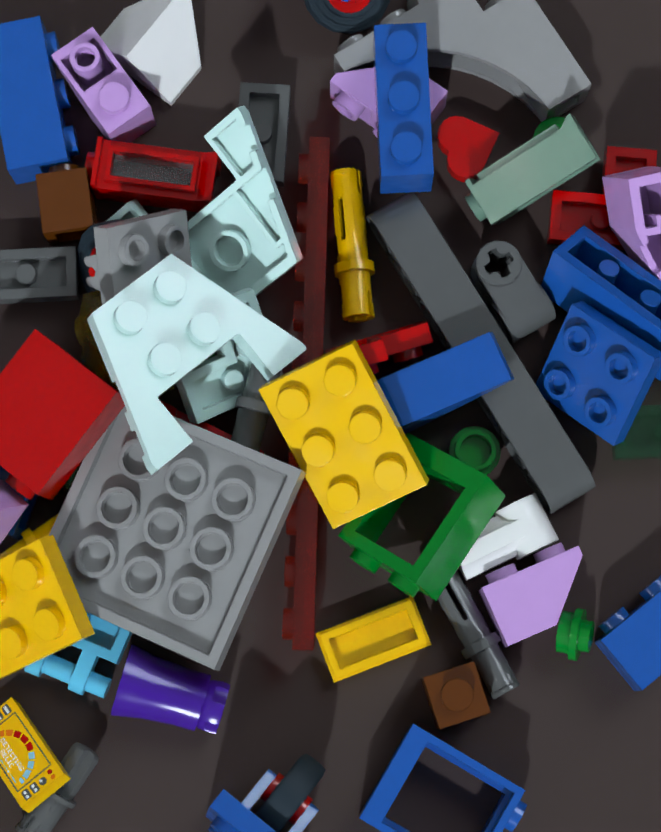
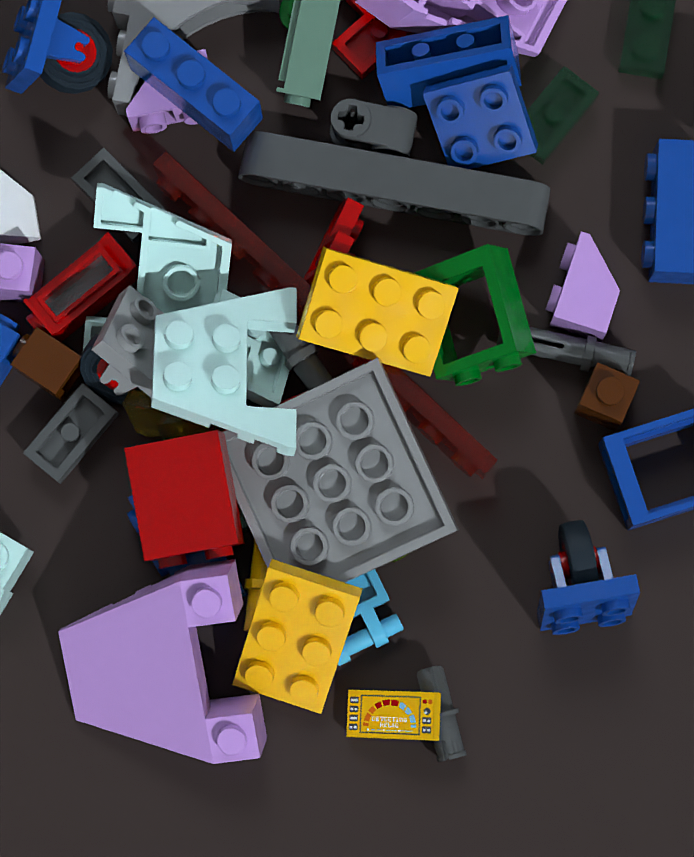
camera: 45 degrees left, 0 degrees up
(169, 693) = (439, 581): dark purple plant -> none
(353, 262) = (261, 213): yellow pin -> none
(373, 639) = (522, 419): yellow tile -> none
(446, 381) = (399, 216): blue slope -> none
(466, 146) = (252, 72): red tile -> none
(476, 448) = (455, 241): green plate -> none
(512, 533) = (534, 267): white piece -> none
(574, 634) = (634, 287): green plate -> none

